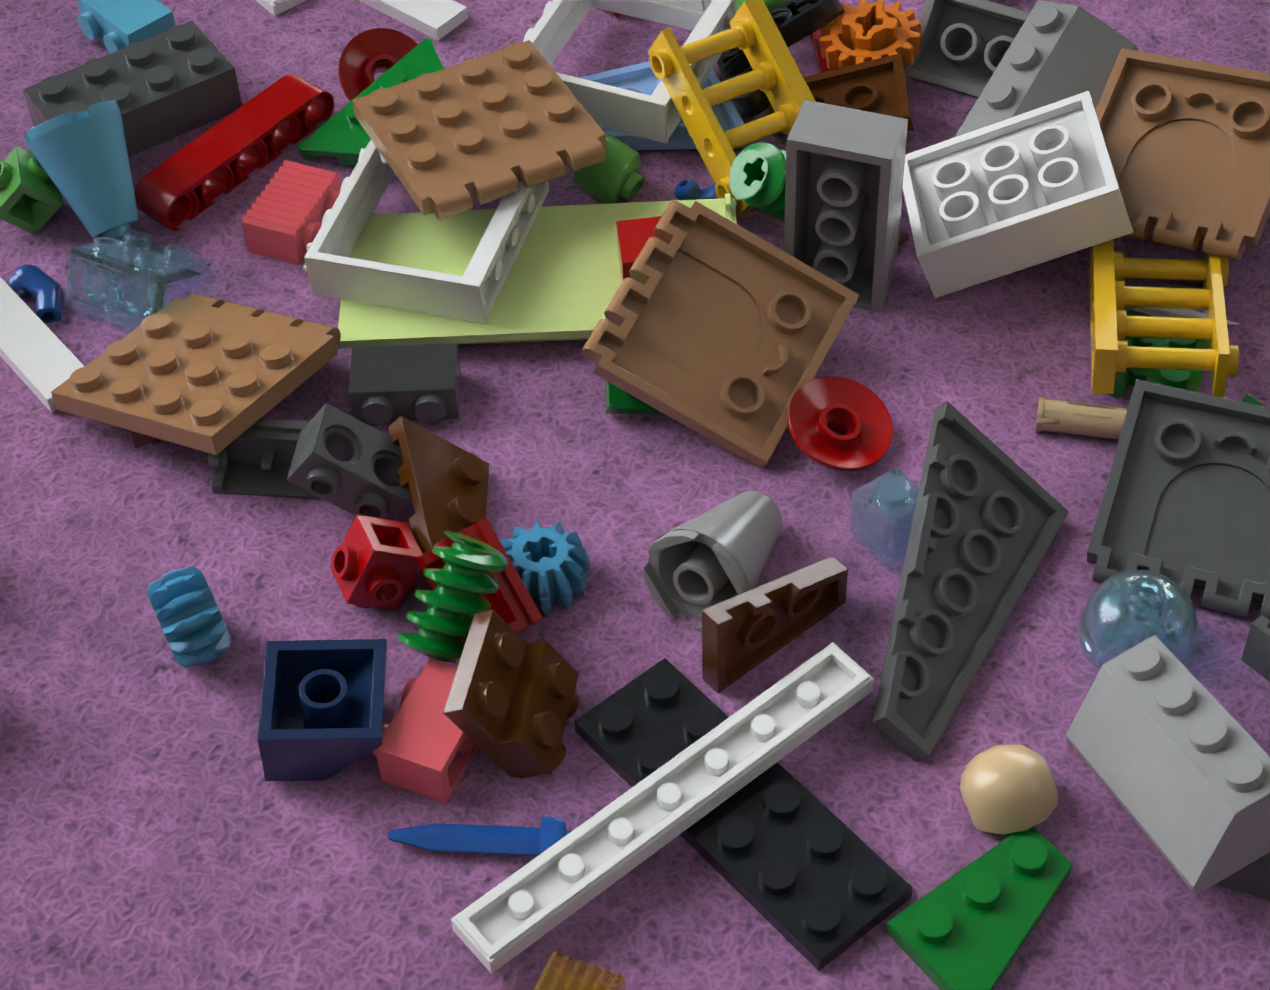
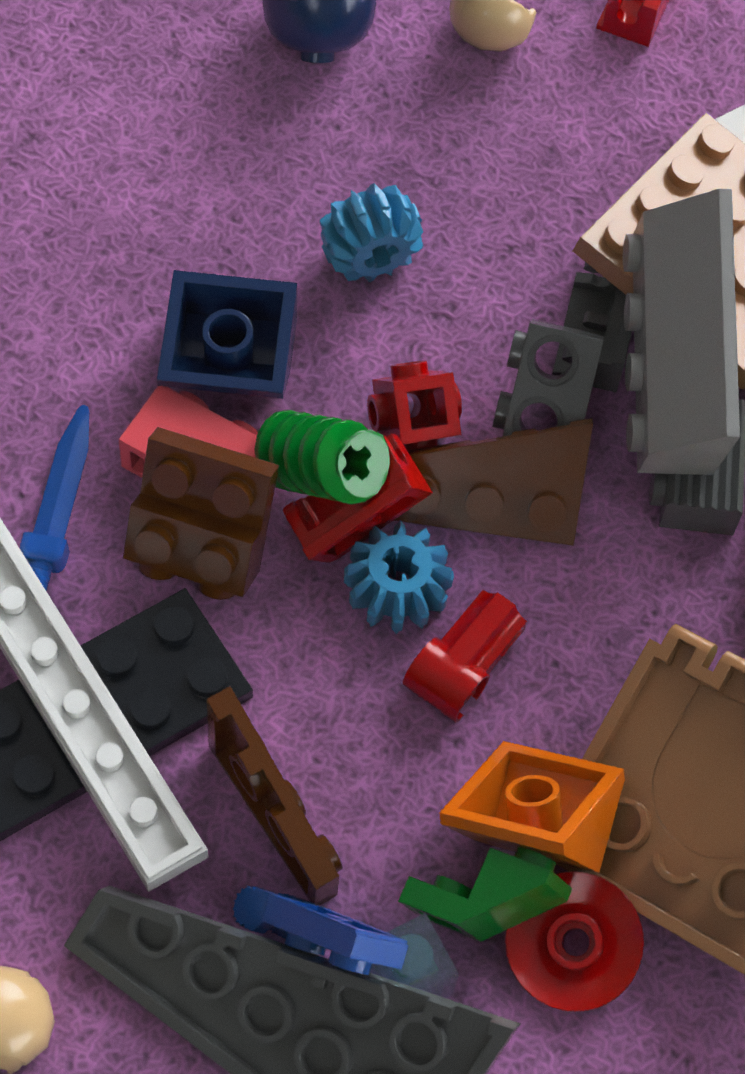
camera: 90 degrees right, 15 degrees up
(323, 339) = (683, 336): none -> light grey slope
(616, 522) = (460, 662): none -> red piece
(713, 555) = (374, 762): light grey cone -> none
(741, 437) = (540, 804): none -> orange slope
(823, 452) = (503, 895): none -> green slope
(883, 556) = (317, 928): none -> blue hinge

